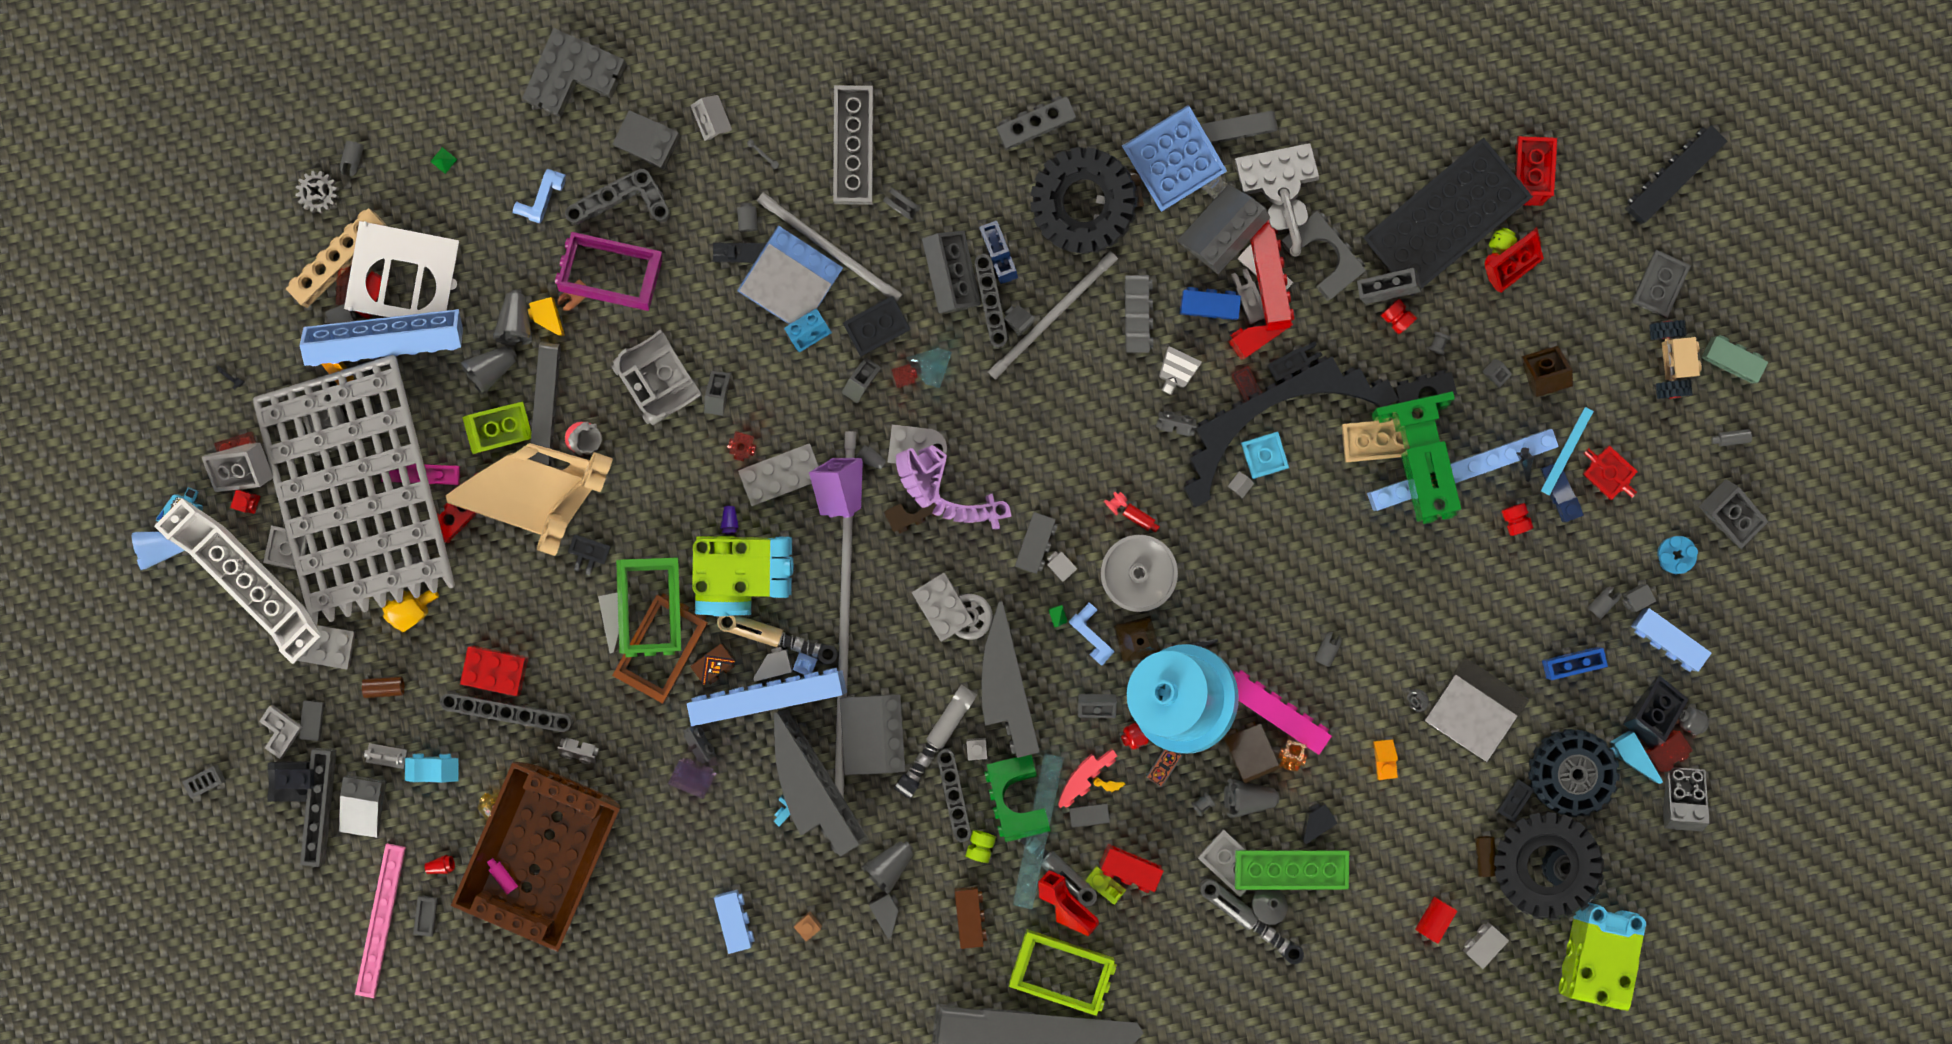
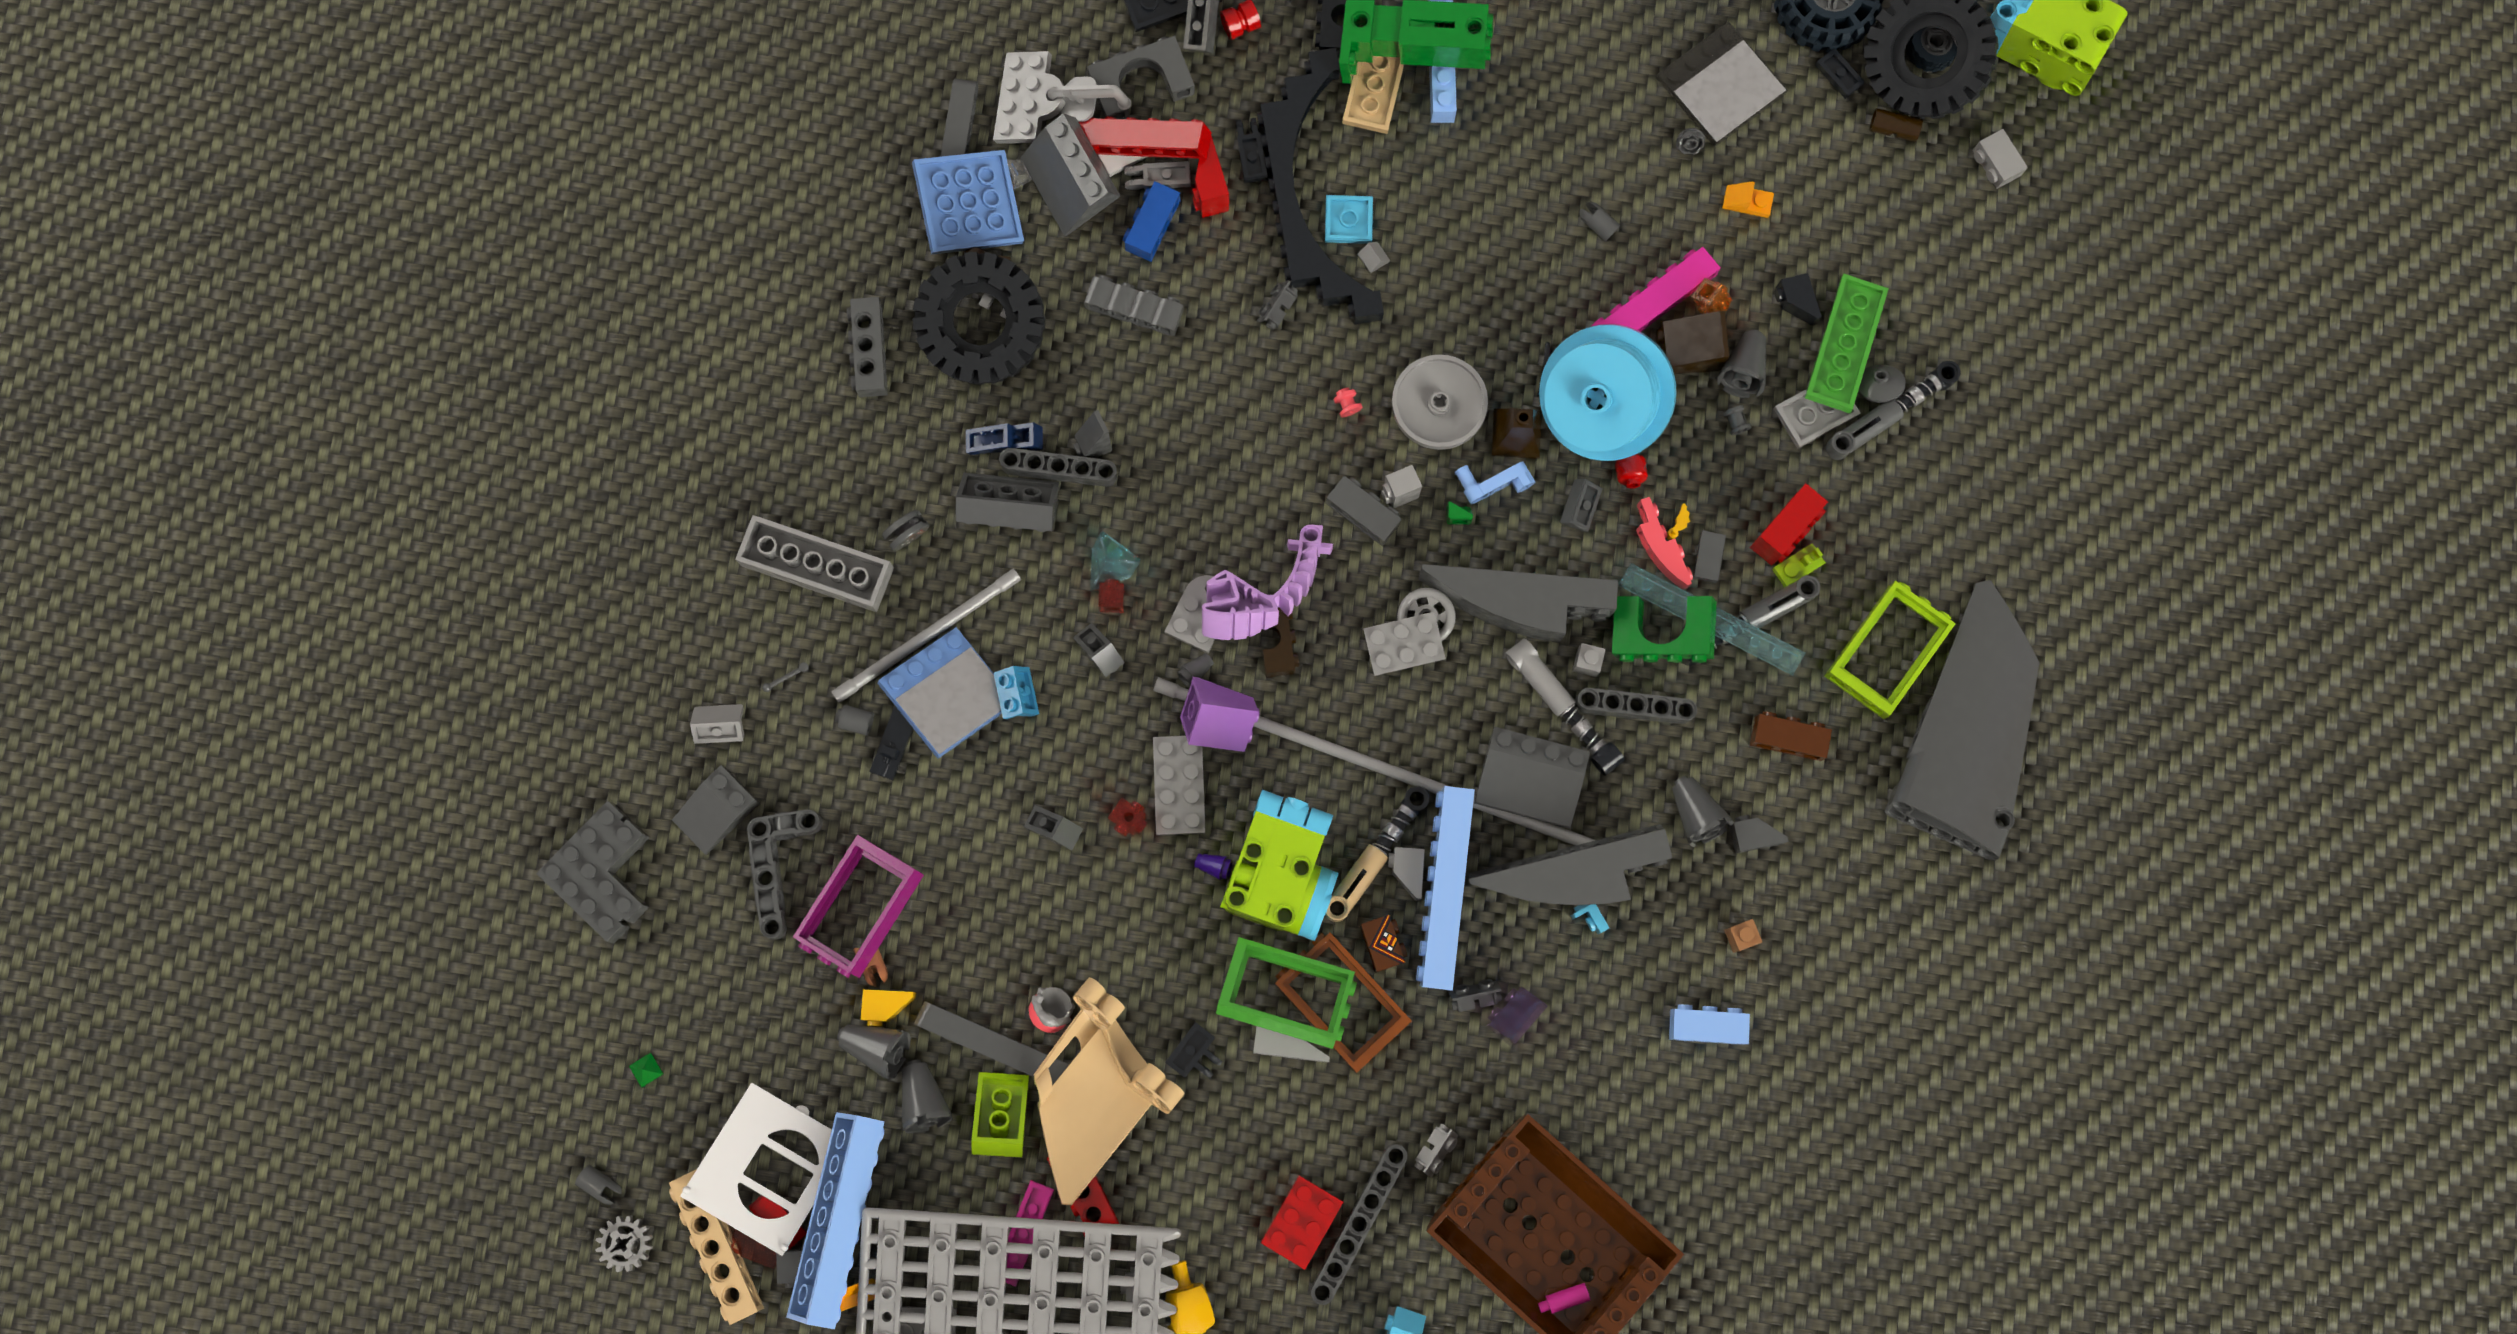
camera: 75 degrees left, 10 degrees down
(486, 804) = (1469, 1286): clear yellow head -> none
(550, 181) = (721, 942): light blue beam -> none
(656, 378) = (1008, 895): light grey piece -> none
(804, 663) = (1419, 833): light blue tile -> none
(877, 326) = (1040, 609): black plate -> none
(980, 846) = (1708, 694): lime wheel -> none
(1068, 909) = (1818, 613): red arch -> none
(1103, 265) = (1138, 479): light grey piece -> none
(1140, 518) = (1375, 381): red cylinder -> none
(1163, 767) = (1677, 451): tile -> none
(1177, 369) = (1214, 282): torso -> none
(1245, 383) = (1257, 213): clear red tile -> none
(1436, 920) = (1954, 203): red brick -> none

